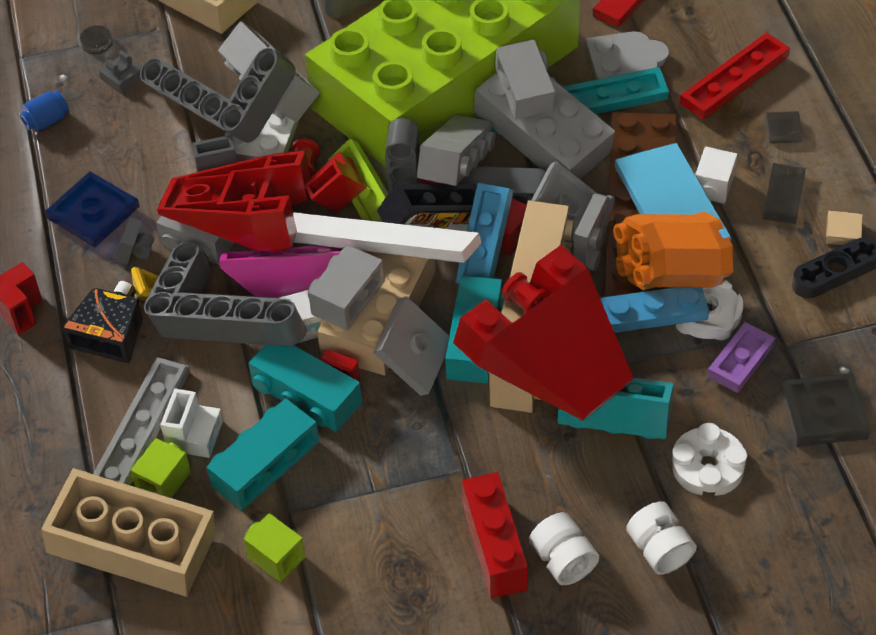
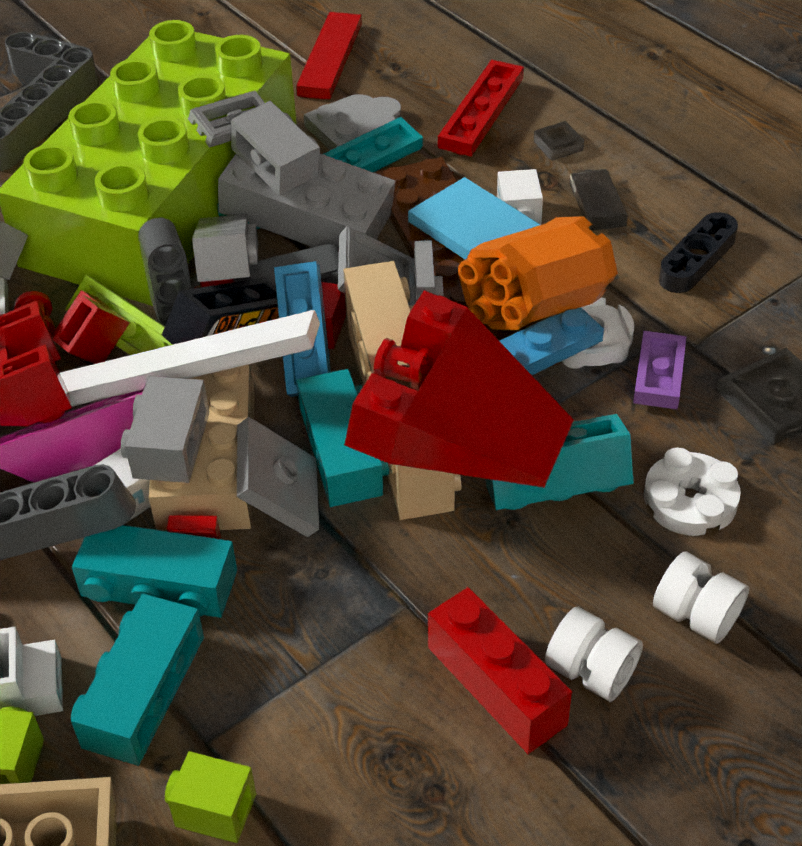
camera: 25 degrees left, 5 degrees down
(498, 31) = (219, 130): none -> light grey tile
(843, 227) = (679, 213): tan tile -> none

